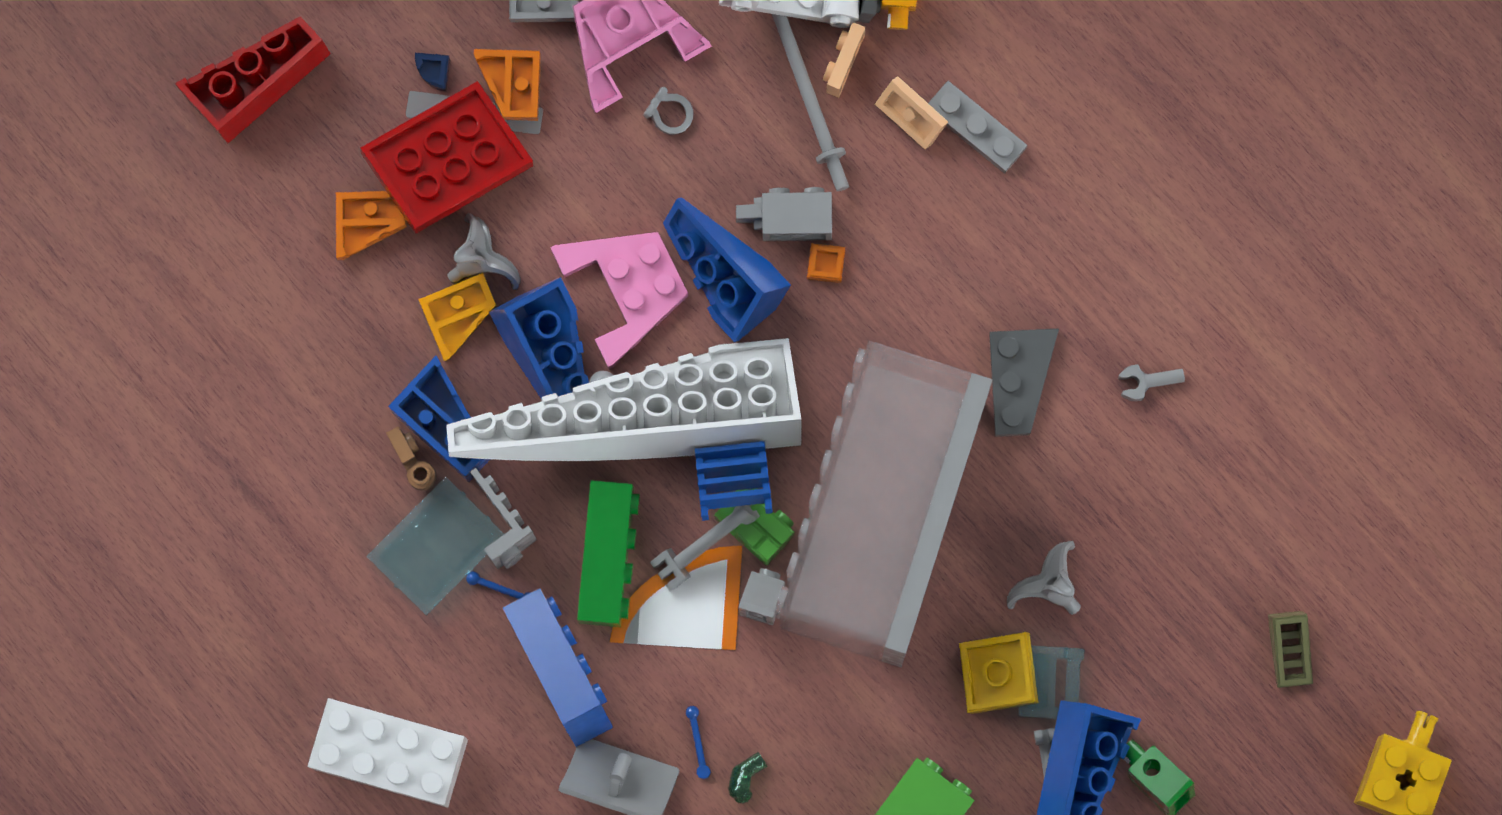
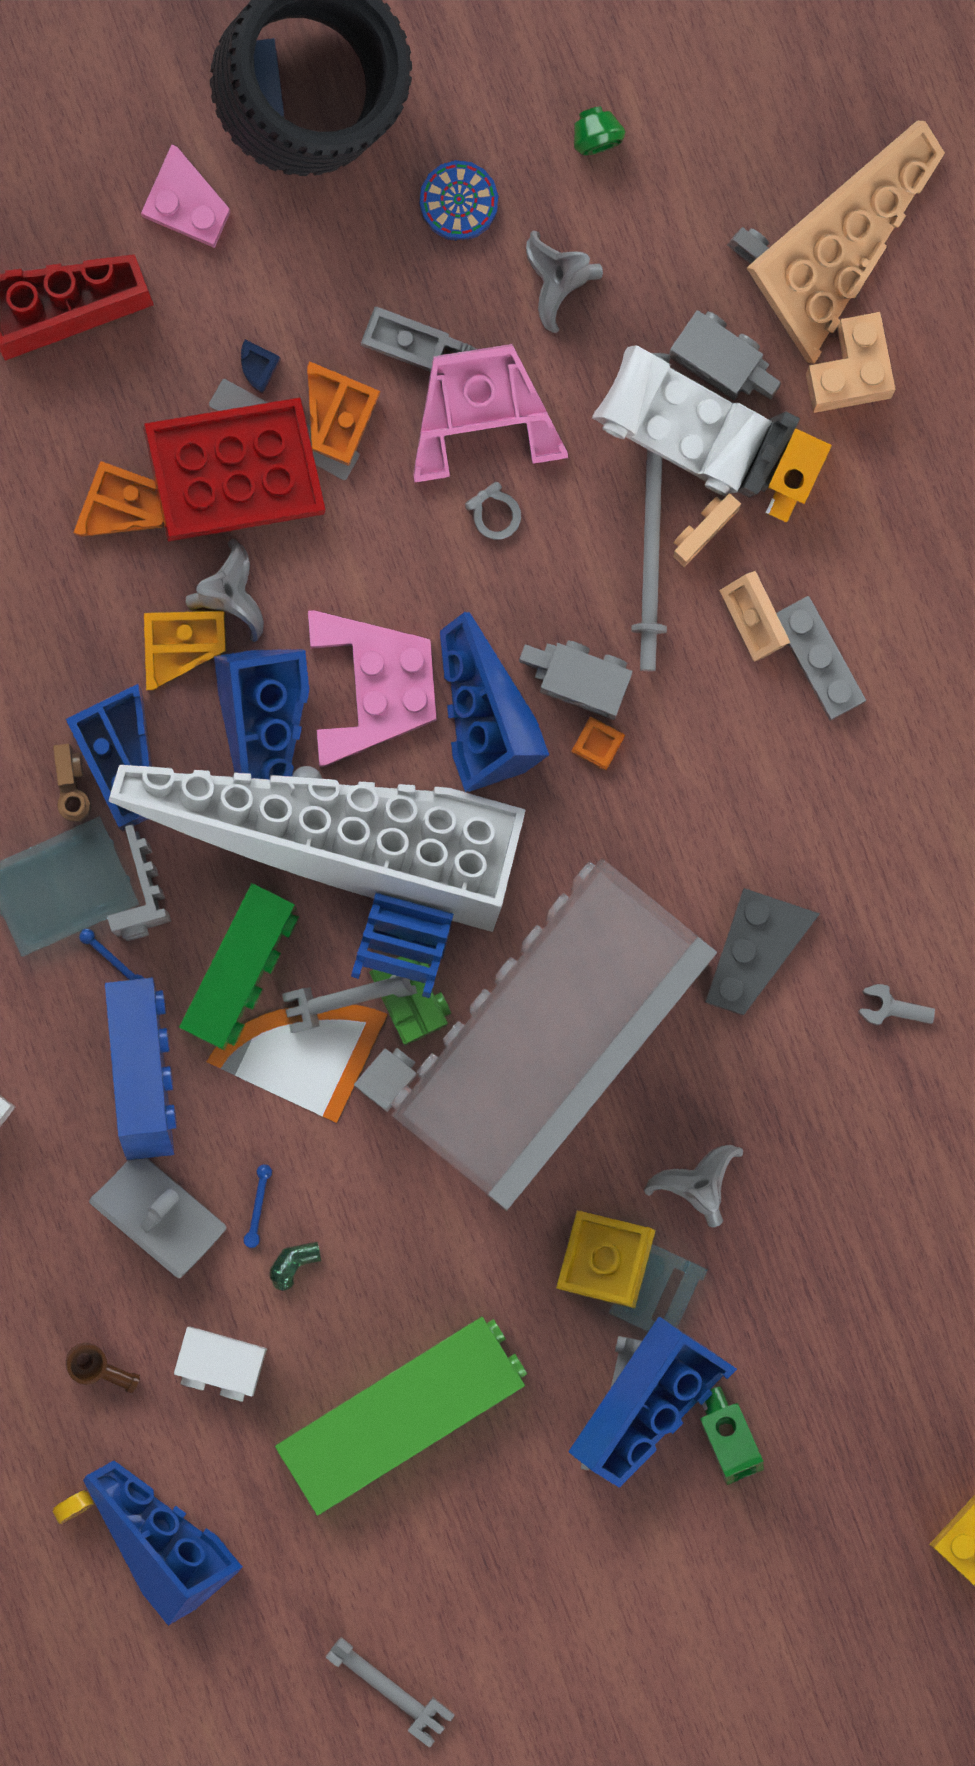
camera: 15 degrees right, 5 degrees up
(1276, 636) = (937, 1321): olive slope -> none

